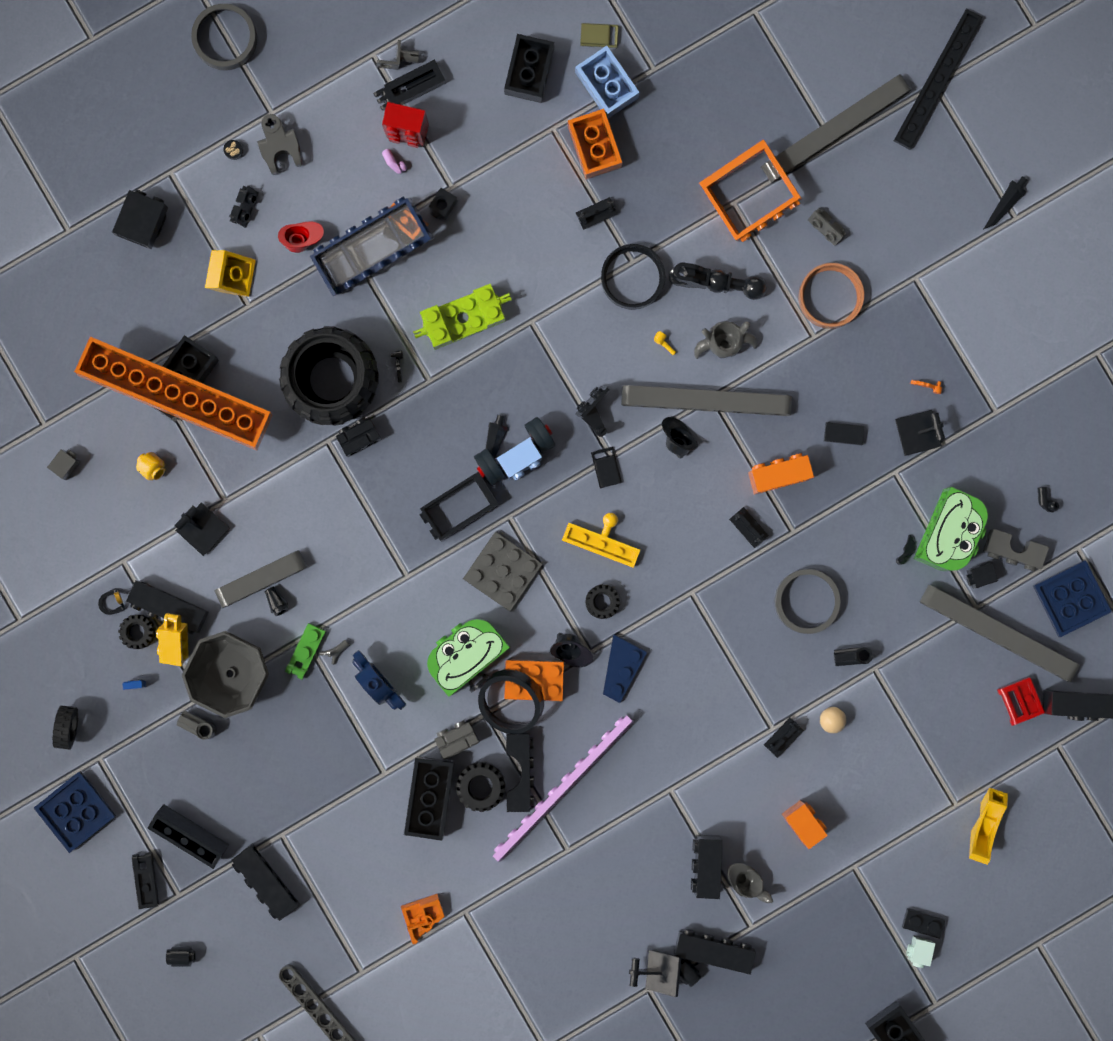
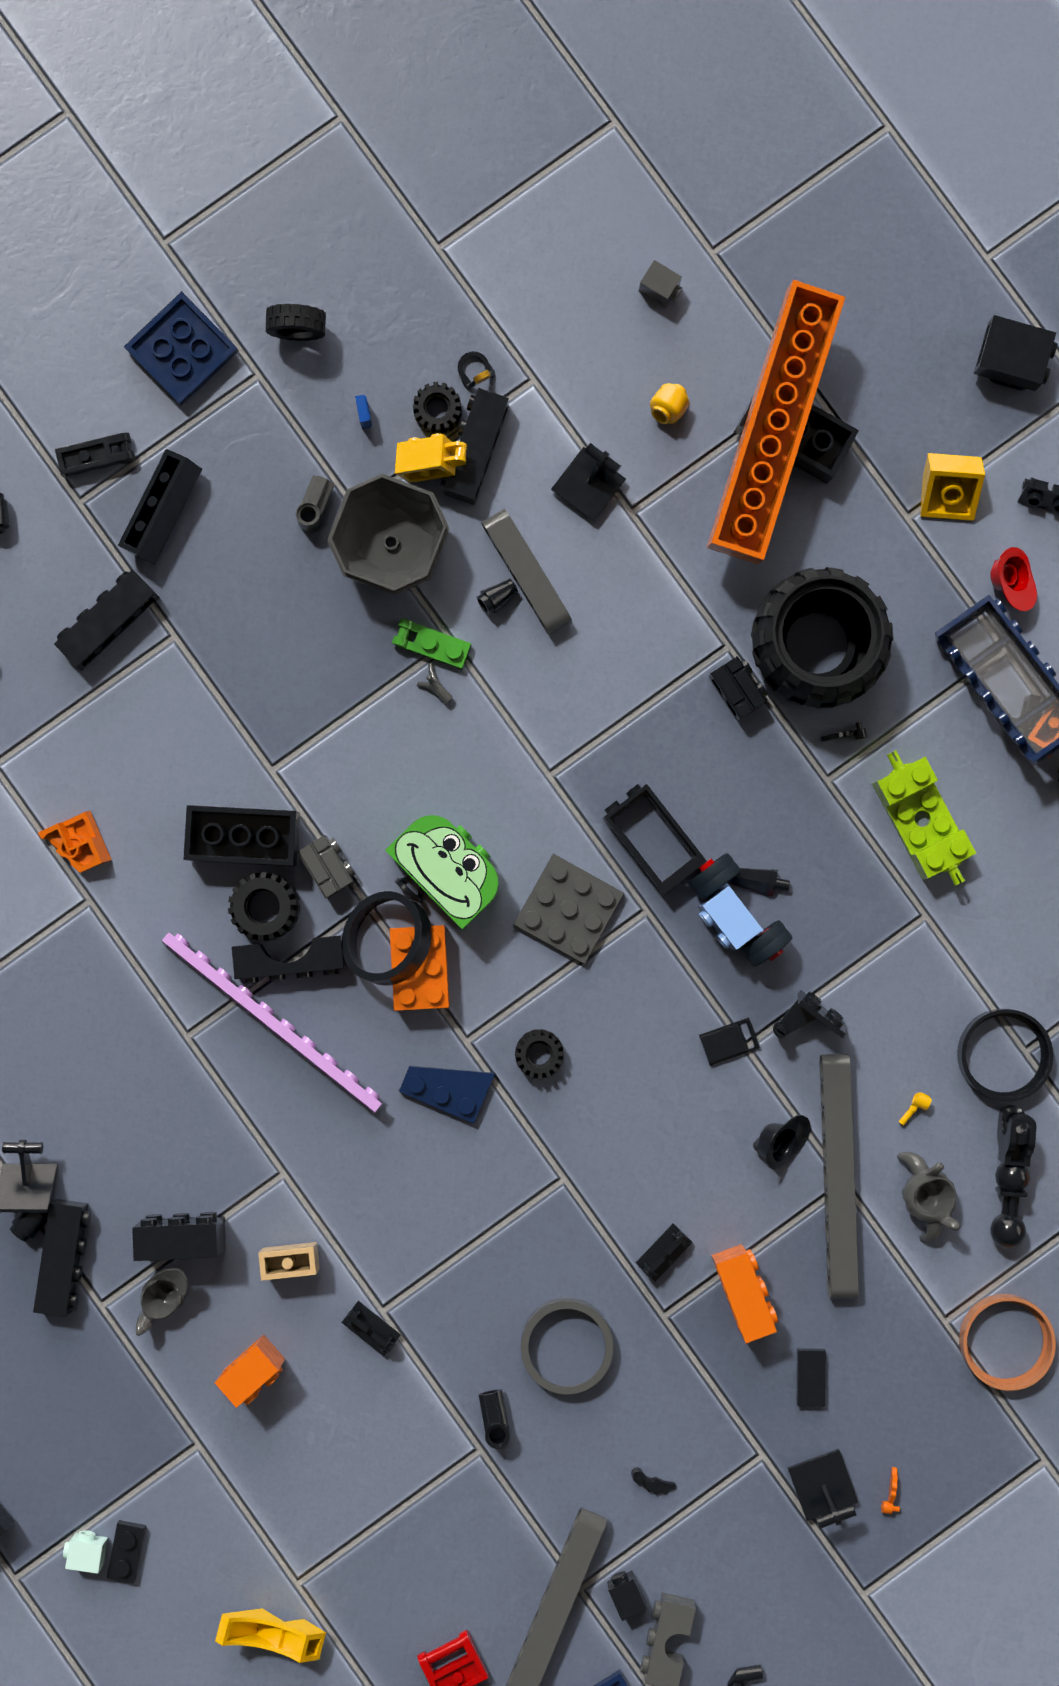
camera: 85 degrees right, 0 degrees up
(375, 683) = (395, 745): dark blue piece -> none
(569, 650) = (465, 1015): black piece -> none
(601, 543) = (621, 1044): yellow plate -> none
(731, 790) = (289, 1261): none -> tan brick
(833, 720) = (401, 1398): tan piece -> none
(953, 531) = (687, 1549): brick -> none

